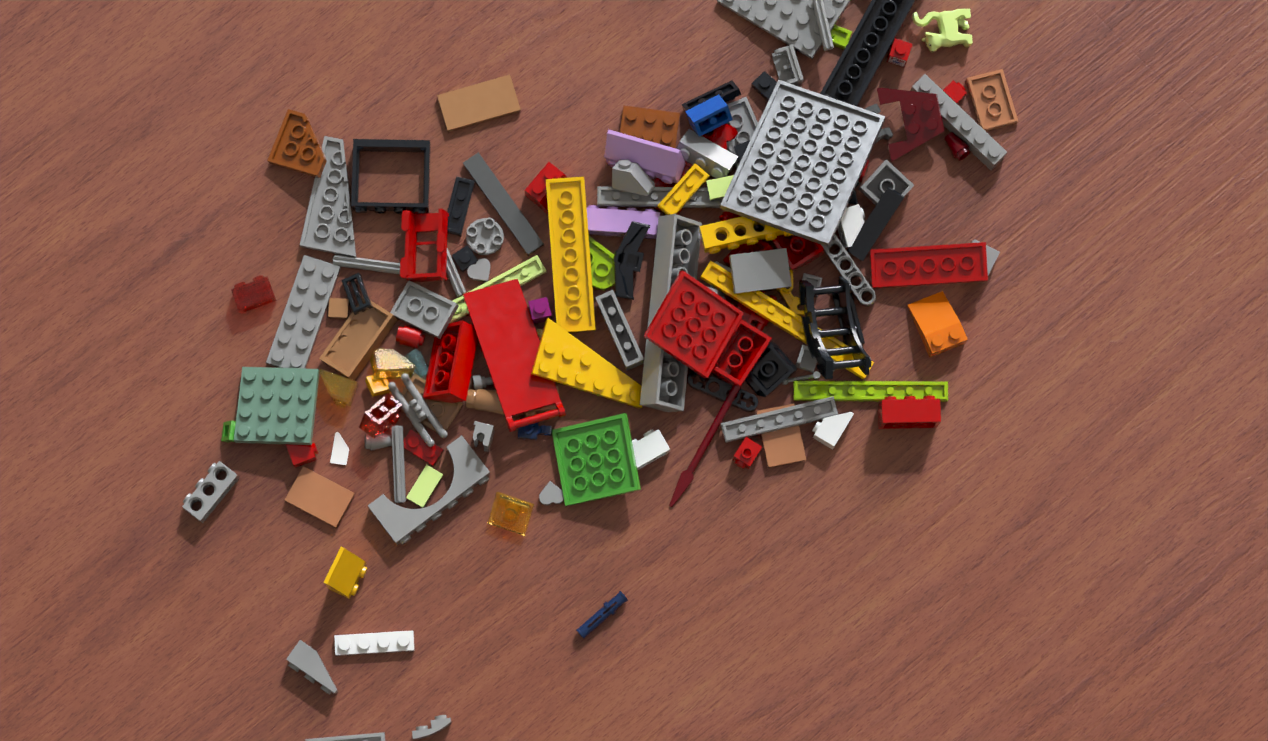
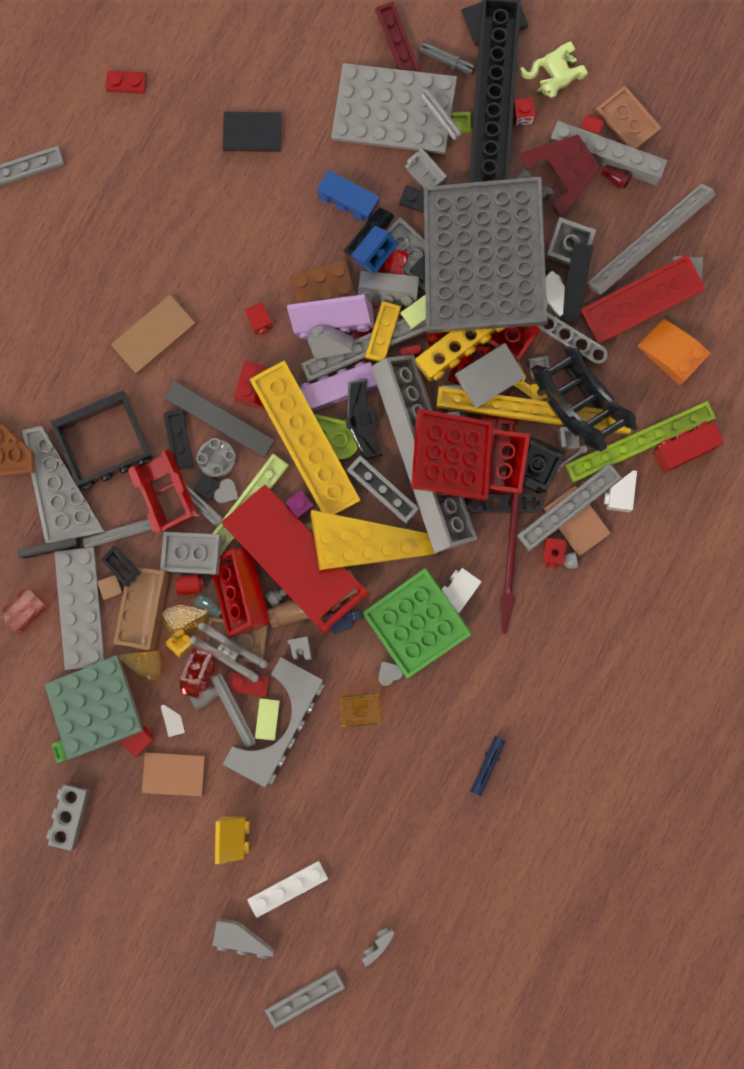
camera: 15 degrees left, 5 degrees up
(300, 249) = (48, 548): none -> black tile
(578, 131) = (259, 319): none -> red brick
(704, 219) = (411, 350): none -> red tile
(707, 58) = (347, 196): none -> blue brick
(759, 467) = (570, 560): none -> light grey hinge
(962, 215) = (651, 239): none -> light grey plate

